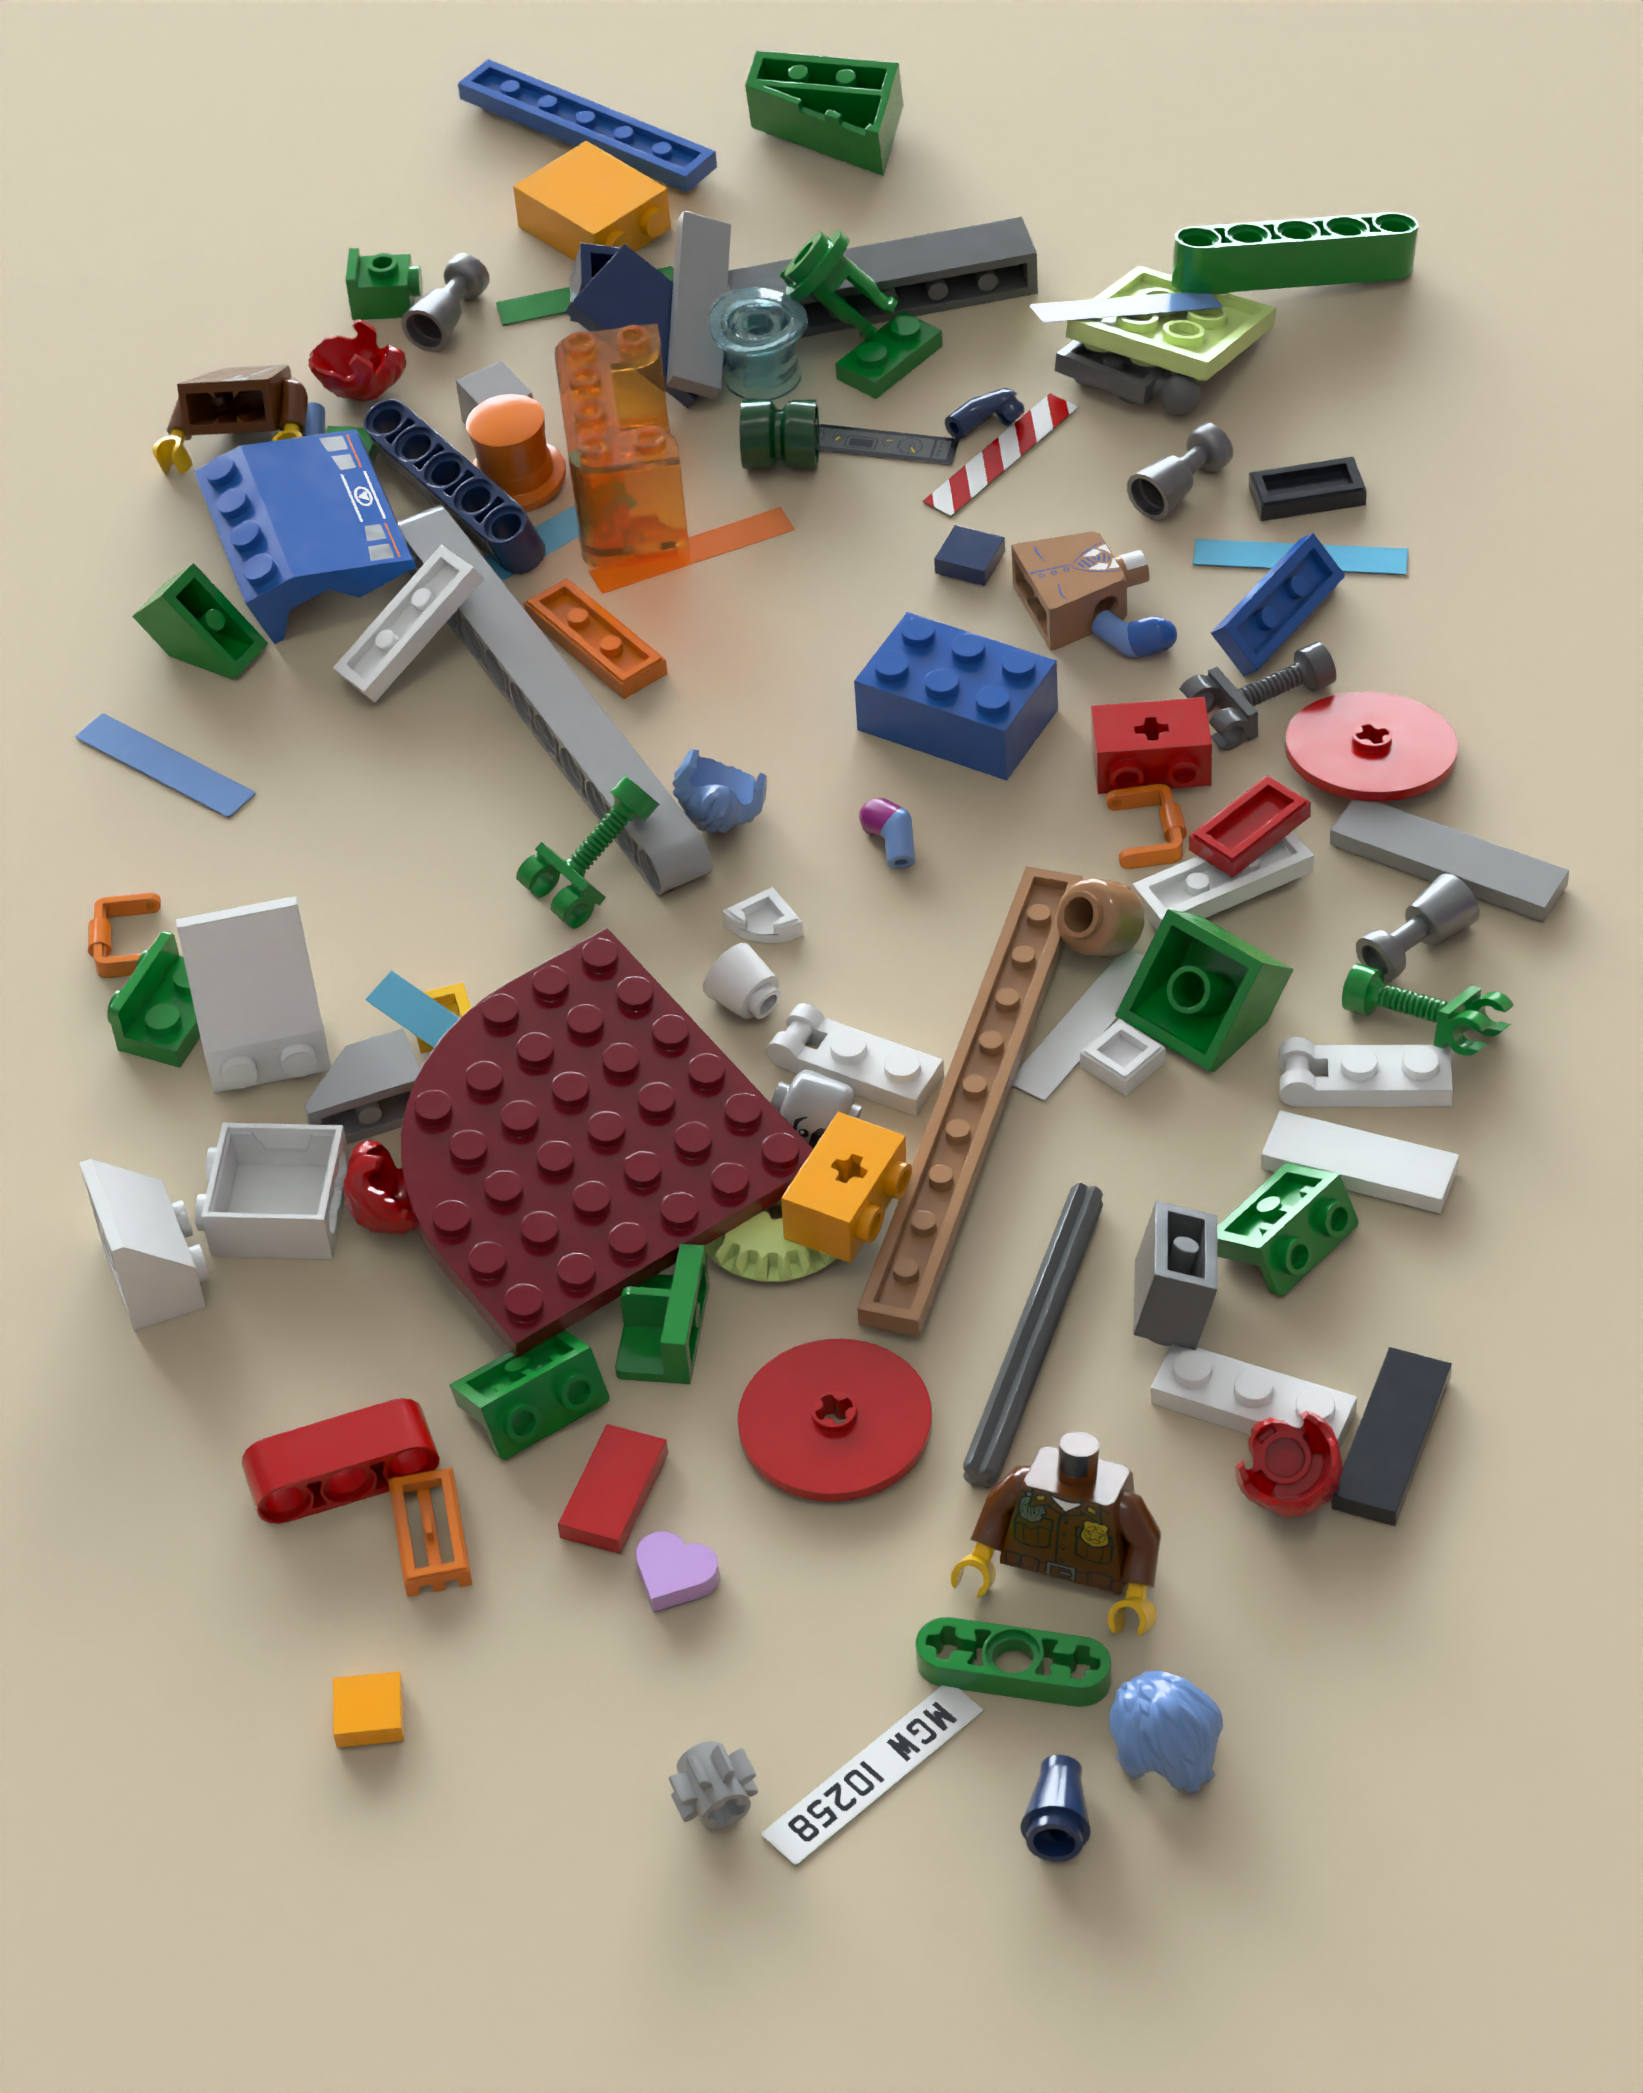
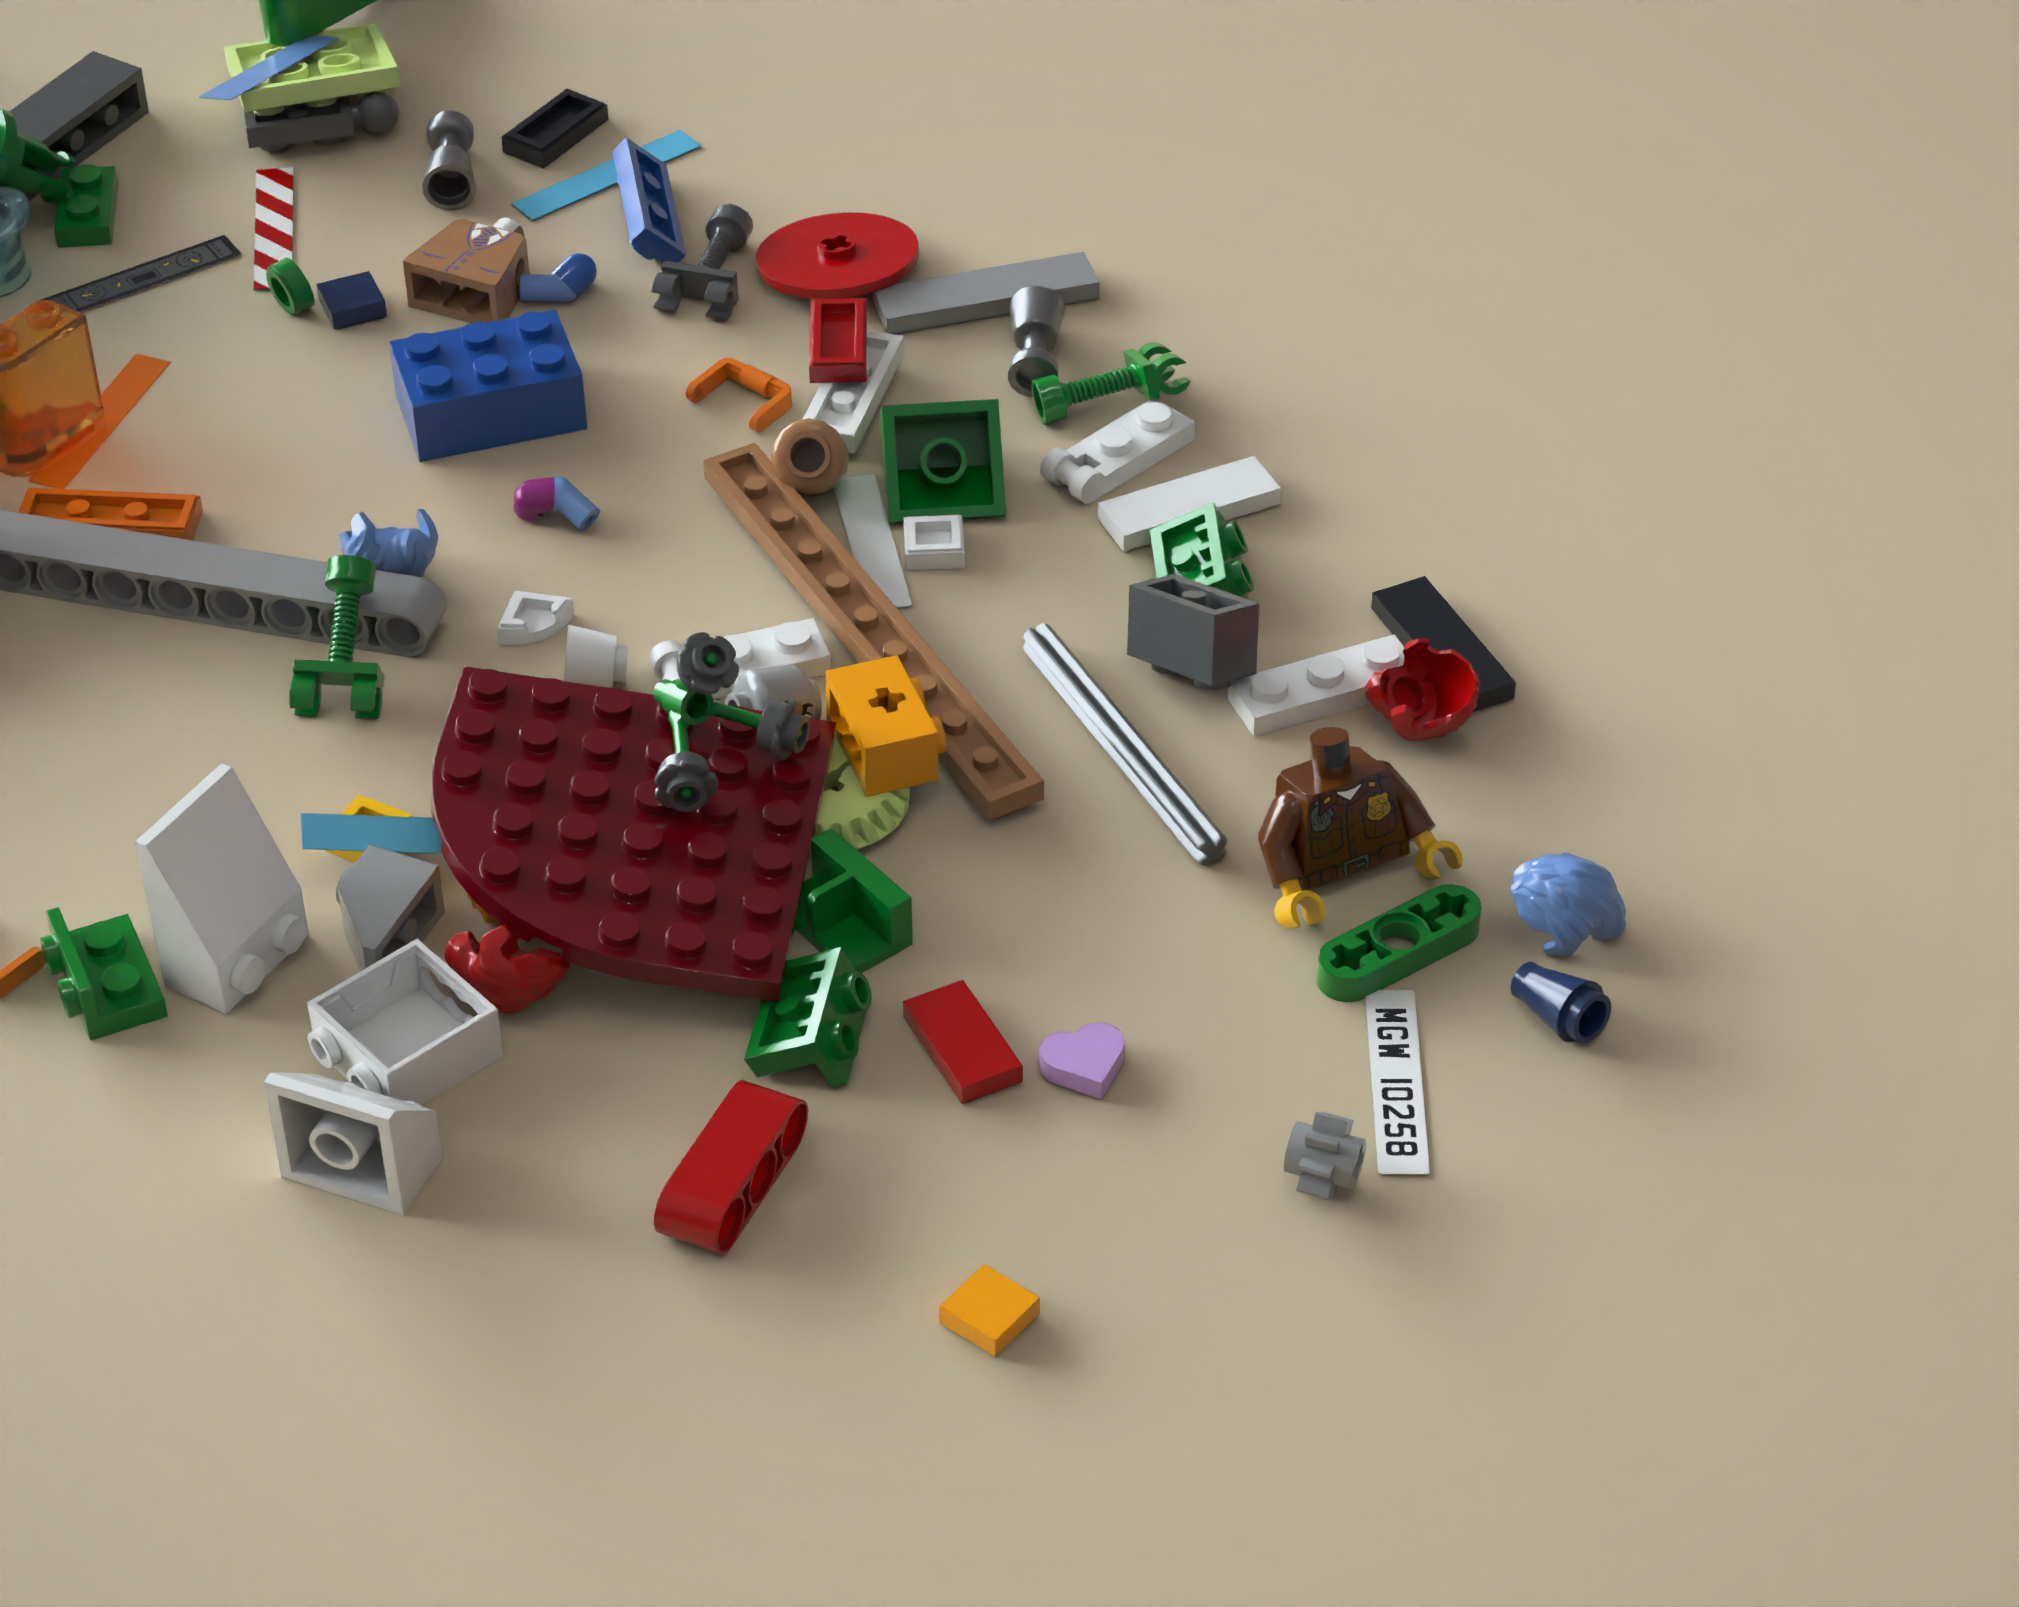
camera: 50 degrees left, 5 degrees down
(436, 1573) = (854, 1173): orange tile -> none
(694, 1058) = (703, 669): none -> dark grey plant
(779, 434) = (93, 285): dark green wheel -> none
(827, 1461) = (1103, 895): red piece -> none
(930, 516) = (290, 286): none -> green tile
(981, 408) = (222, 200): dark blue arm -> none
(1151, 744) = (682, 337): red brick -> none

